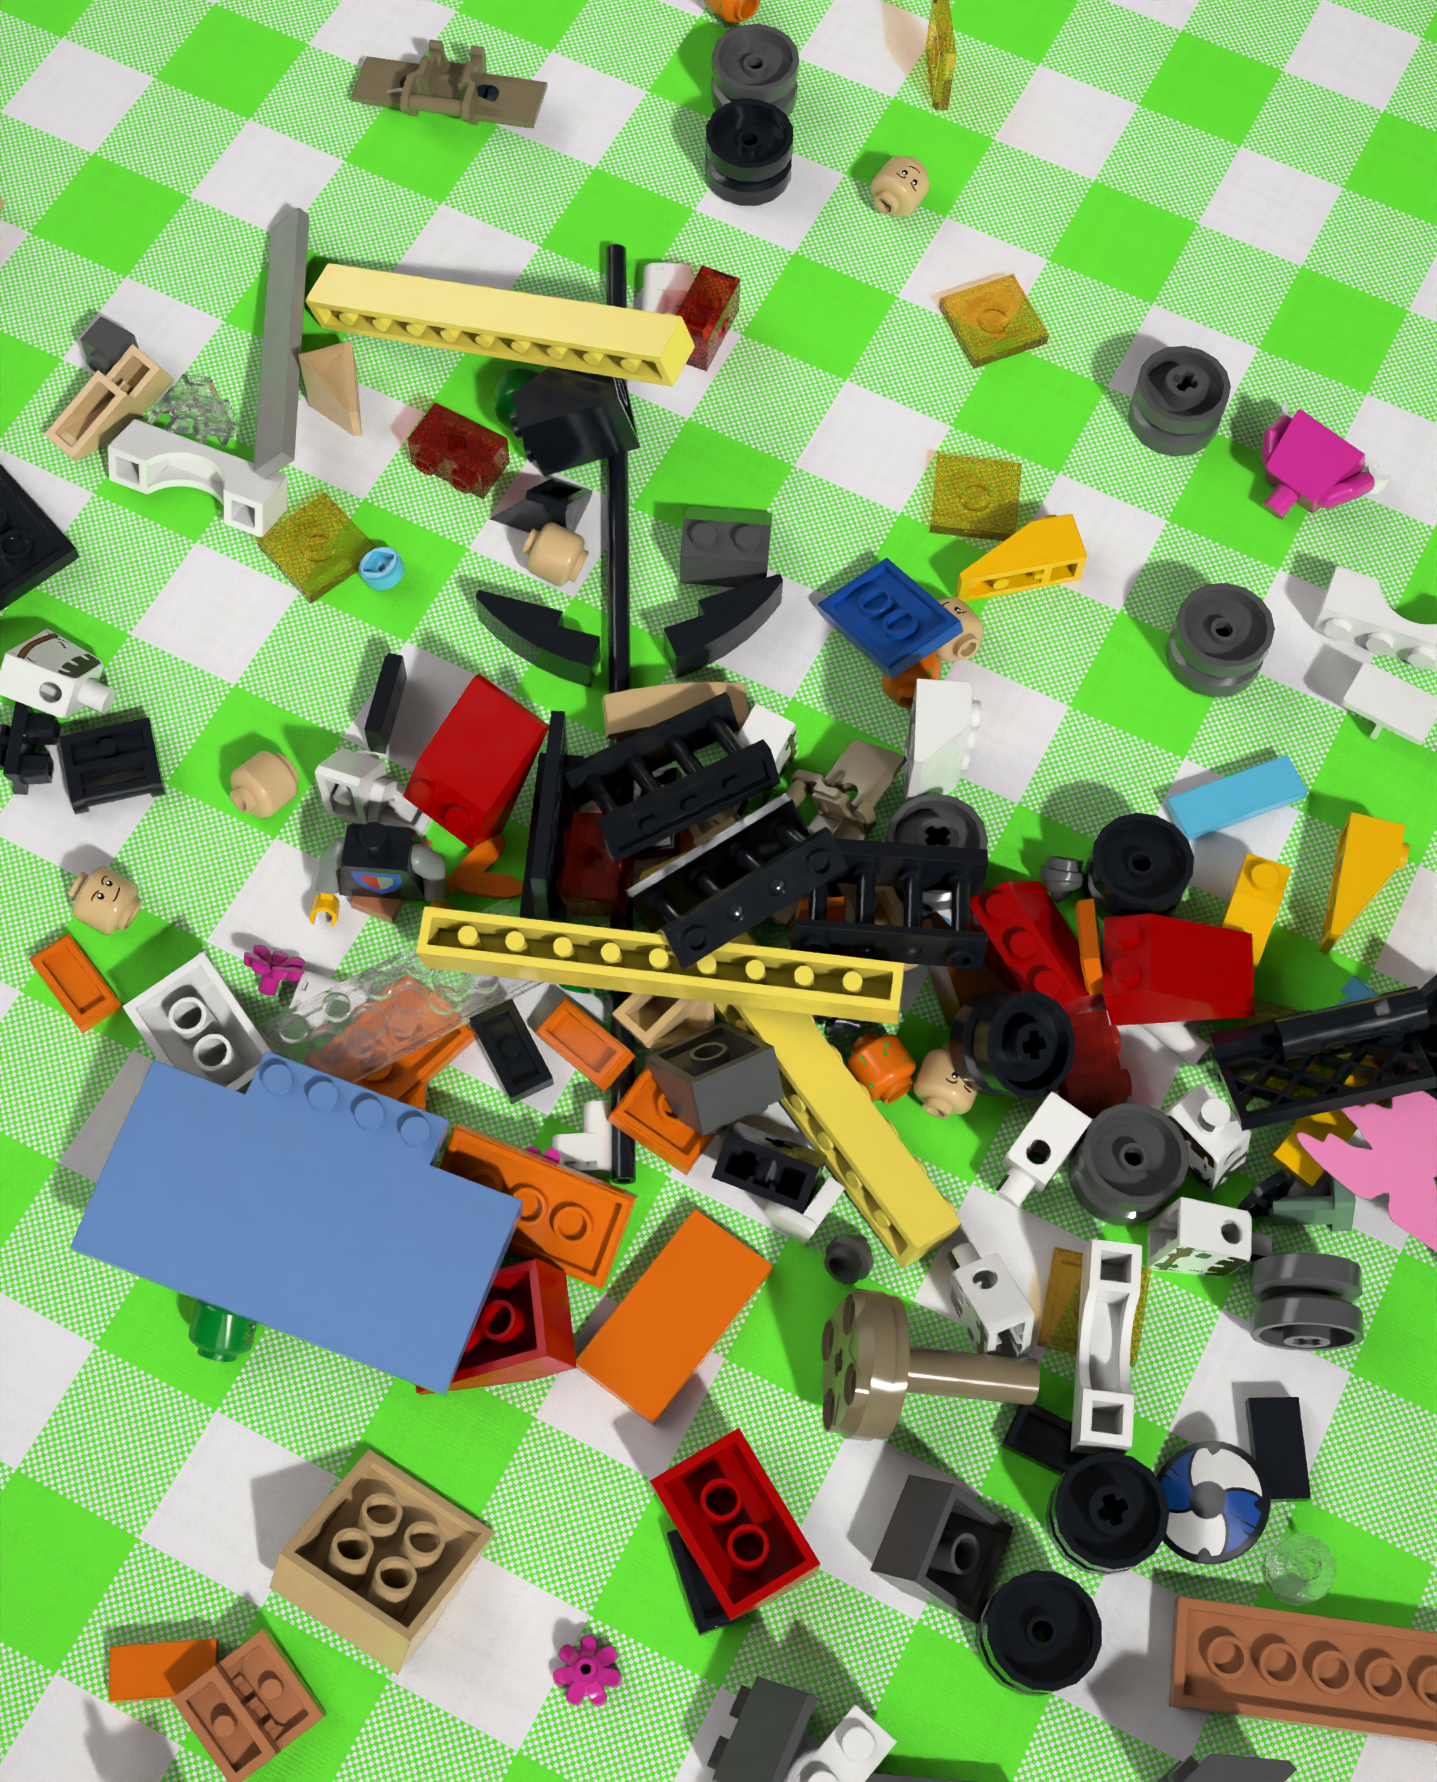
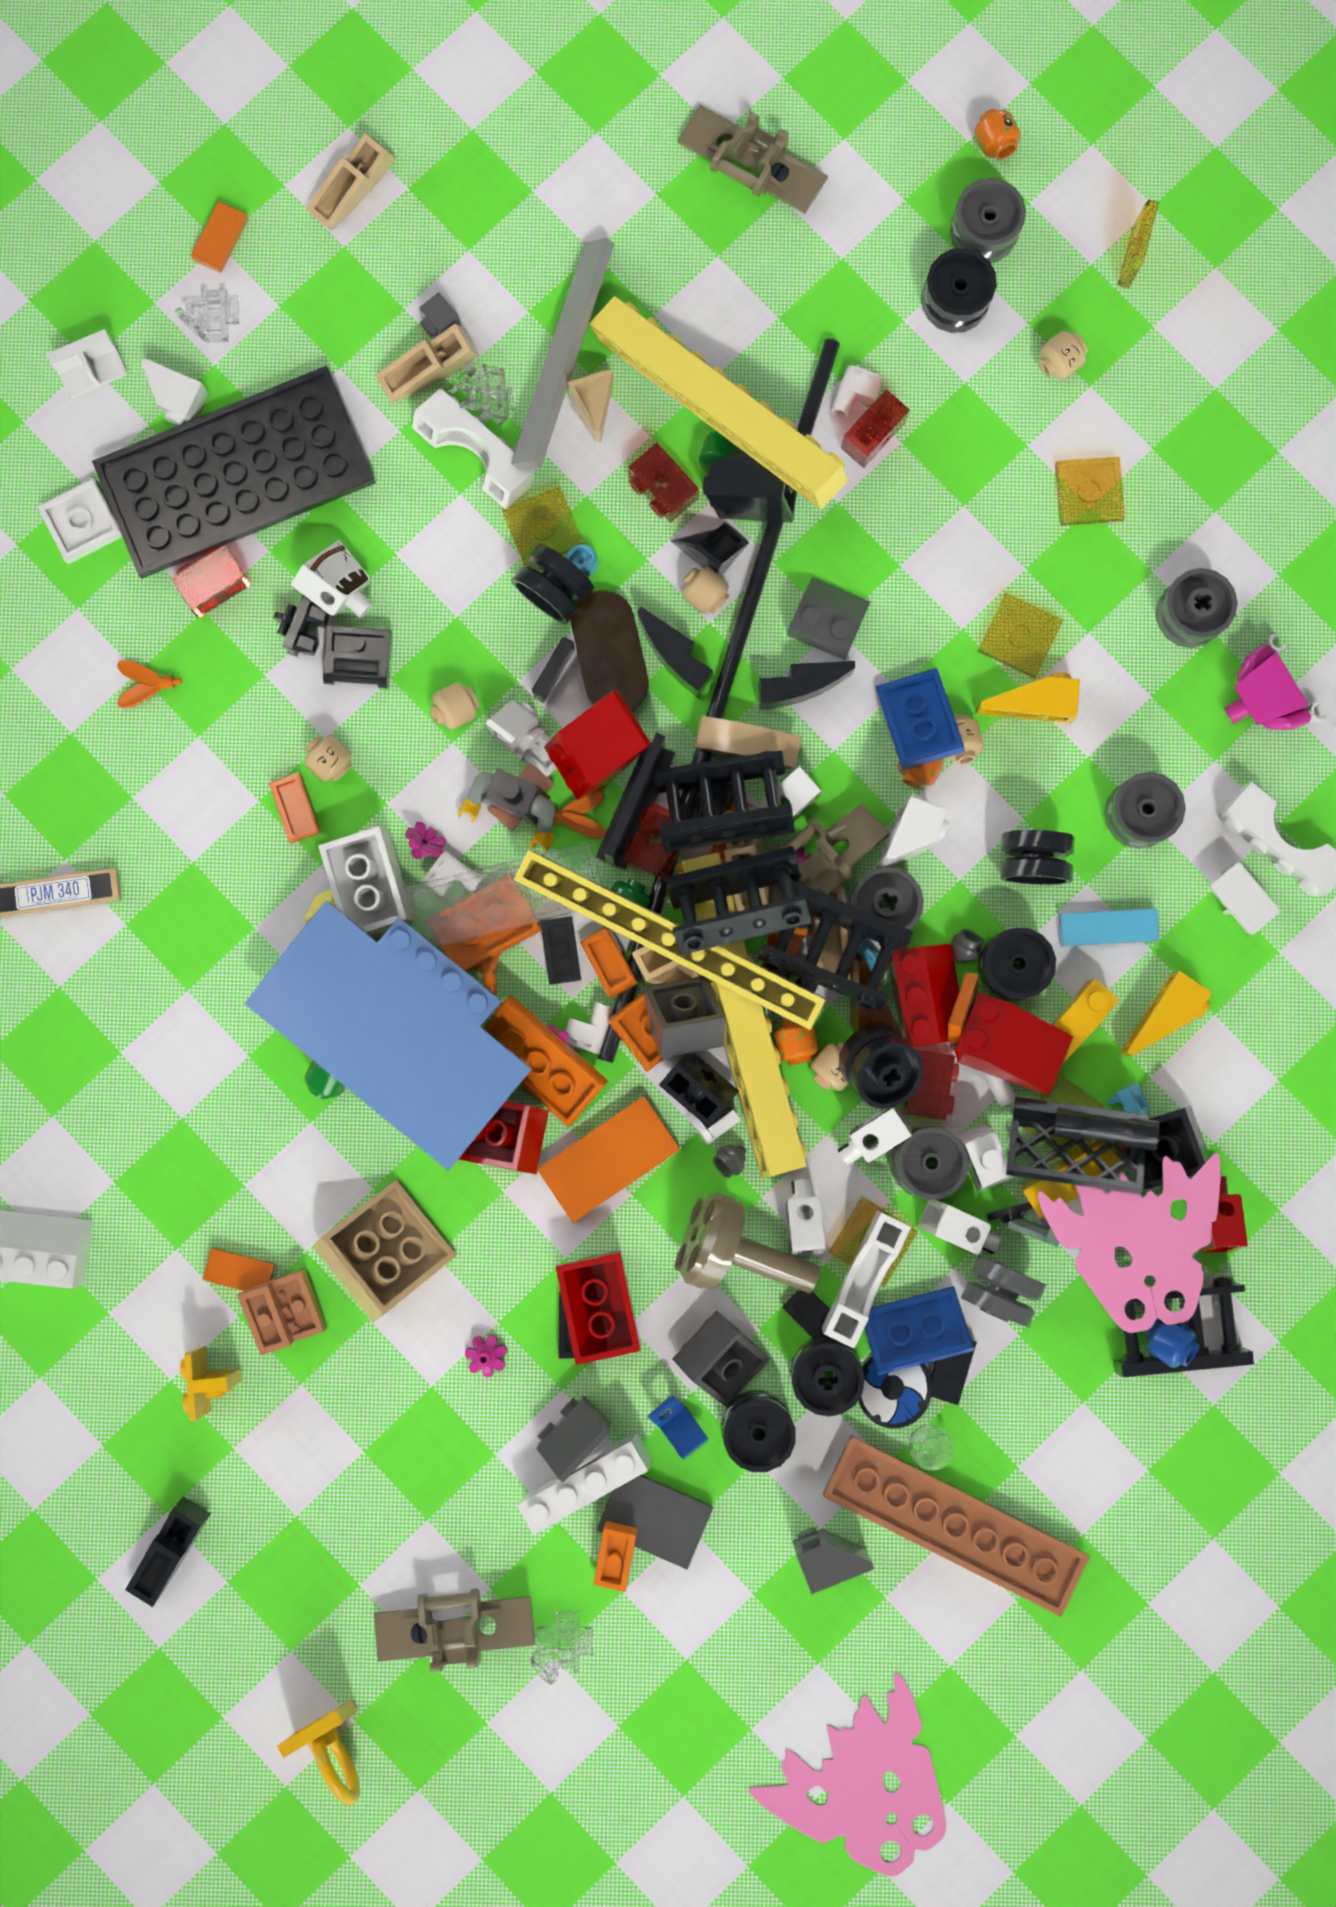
camera: 20 degrees right, 20 degrees up
(352, 595) = (552, 583): none -> black wheel
(445, 650) = (609, 648): none -> dark brown tile
(916, 1673) = (679, 1427): none -> blue bracket
(1108, 731) = (1037, 857): none -> black wheel
(1209, 1408) = (917, 1331): none -> blue tile

